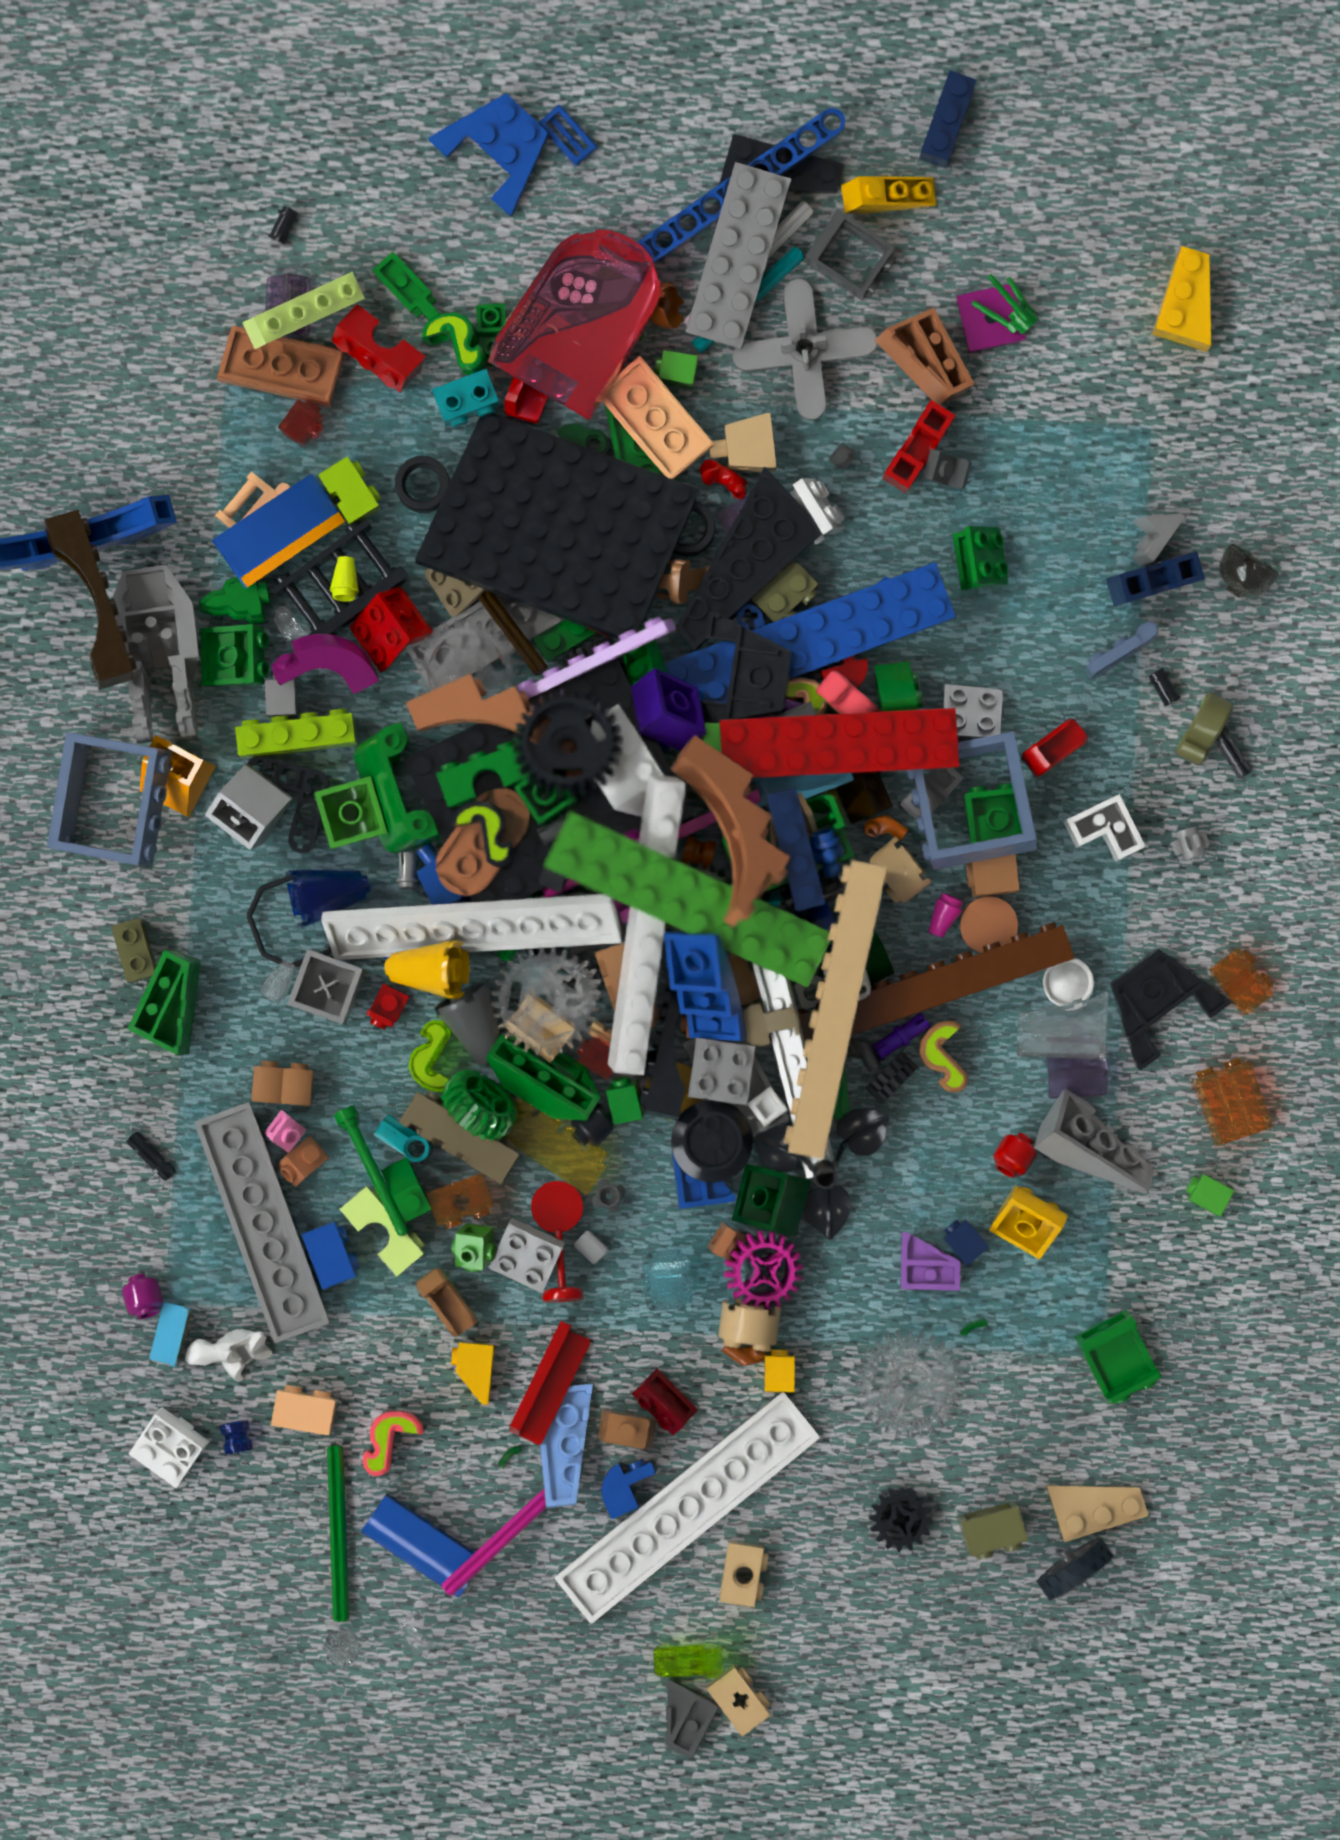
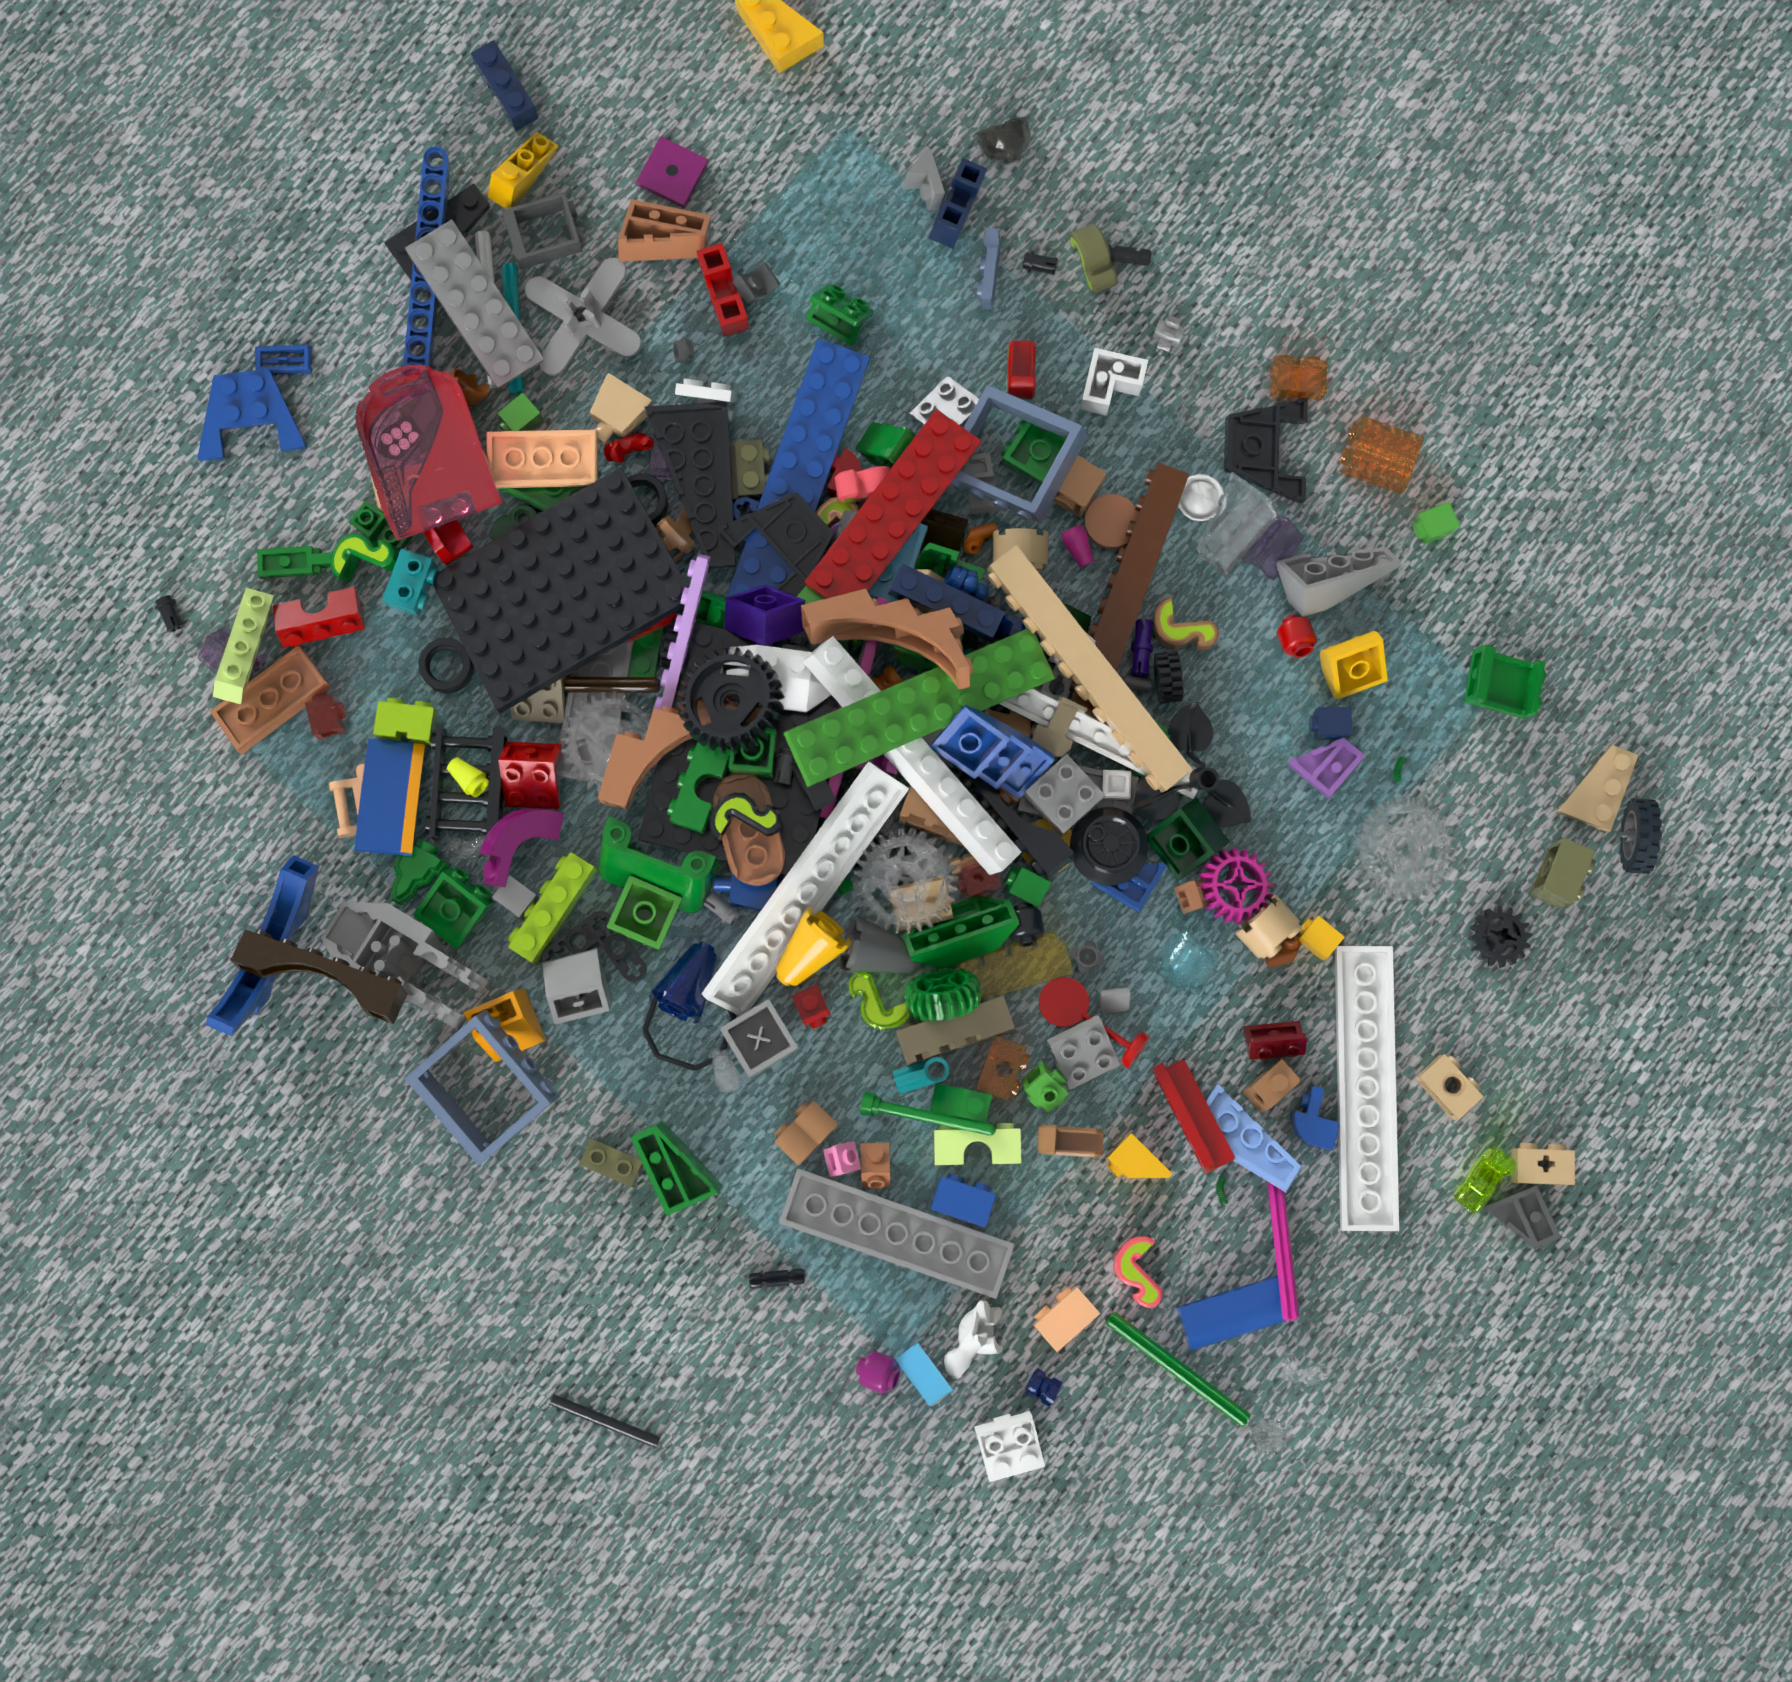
camera: 55 degrees left, 5 degrees down
(1021, 317) = (690, 146): green plant -> none

